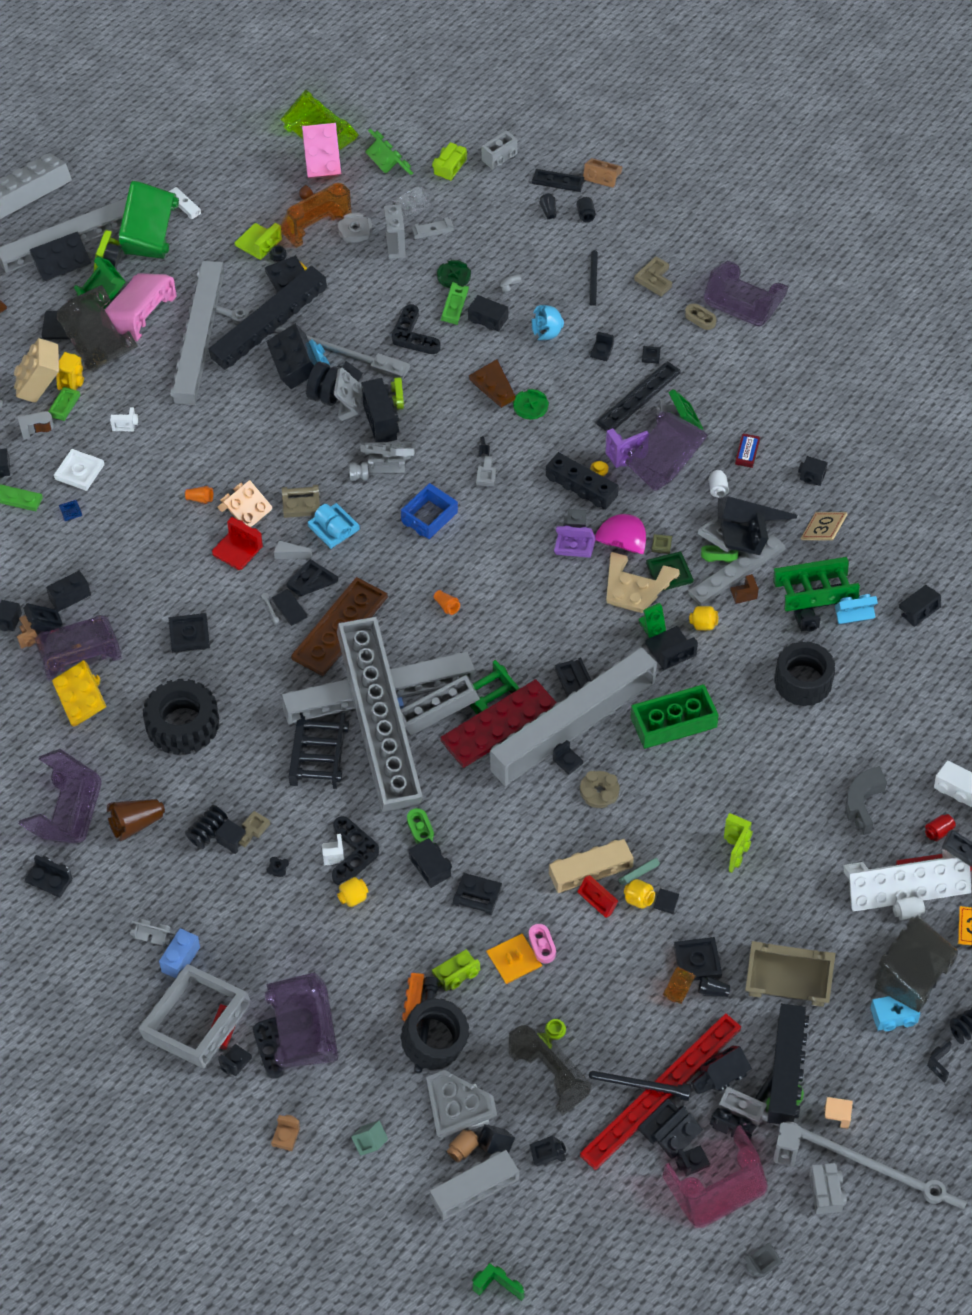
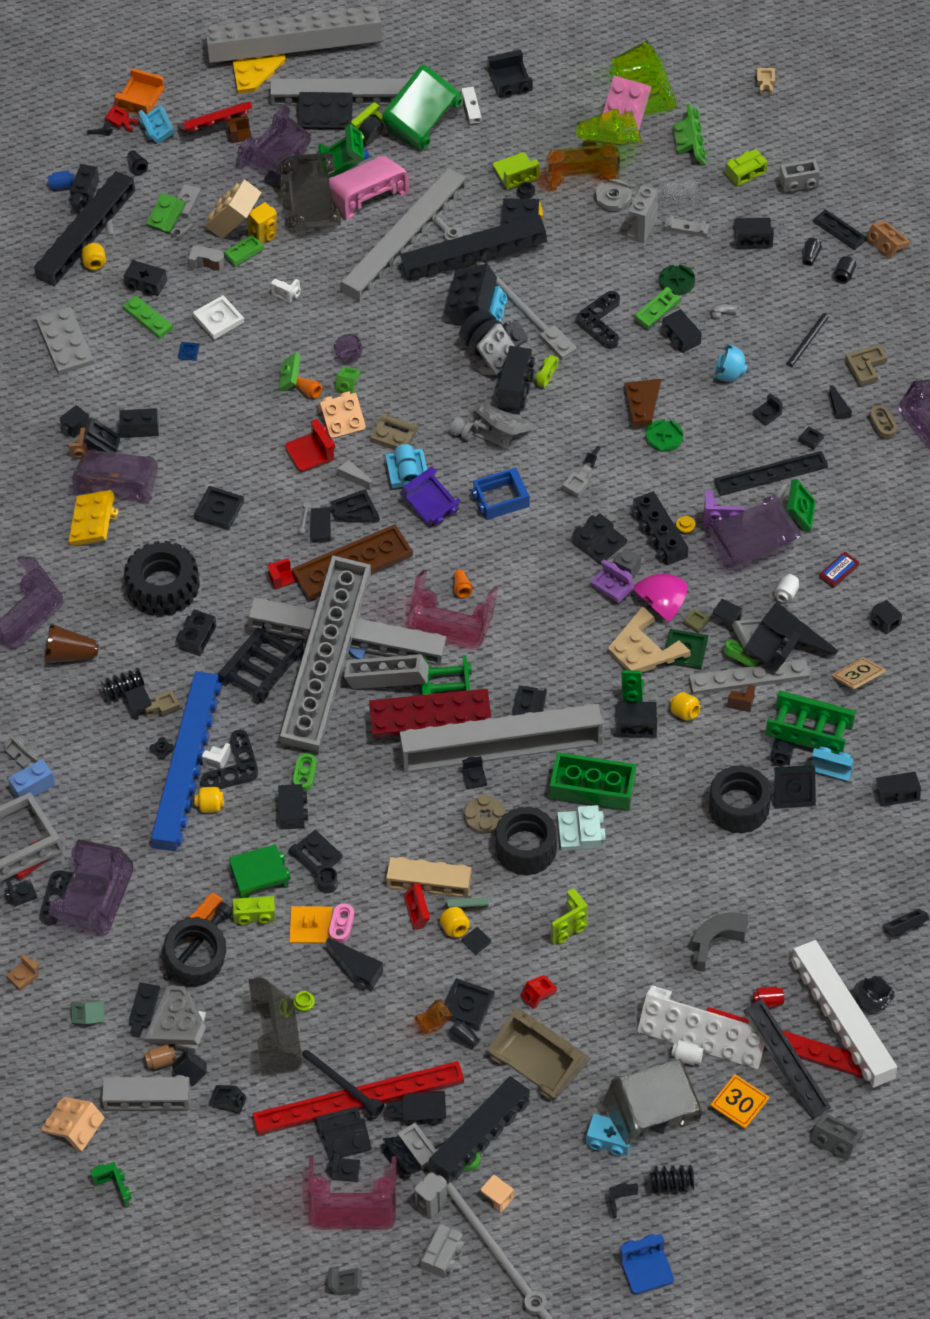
camera: 30 degrees right, 0 degrees up
(37, 302) = (275, 144): none -> clear purple windscreen
(175, 489) = (289, 372): none -> bright green plate
(199, 165) = (509, 74): none -> black panel
(212, 444) = (348, 345): none -> clear purple hair
(230, 474) = (346, 379): none -> bright green bracket
(242, 750) = (197, 634): none -> black brick
(282, 665) = (281, 573): none -> red panel
(309, 869) = (185, 762): none -> blue brick
(328, 171) = (611, 129): none -> clear neon green windscreen
(372, 542) = (429, 498): none -> dark purple panel
(416, 1108) = (143, 1007): none -> black hinge
(417, 85) = (766, 79): none -> tan plate
(422, 1245) = (75, 1121): none -> light nougat bracket
(439, 933) = (259, 870): none -> green panel
(474, 639) = (456, 626): none -> clear pink windscreen
(492, 210) = (753, 233): none -> black bracket
(503, 907) = (327, 879): none -> black wheel
(535, 512) = (598, 538): none -> black plate
(581, 974) = (360, 968): none -> black slope
(653, 813) = (526, 861): none -> black tyre
(657, 319) = (840, 407): none -> black piece
(686, 523) = (728, 612): none -> black panel
(689, 761) = (581, 828): none -> light aqua plate
(748, 918) = (536, 990): none -> red bracket
(842, 640) = (794, 786): none -> black tile

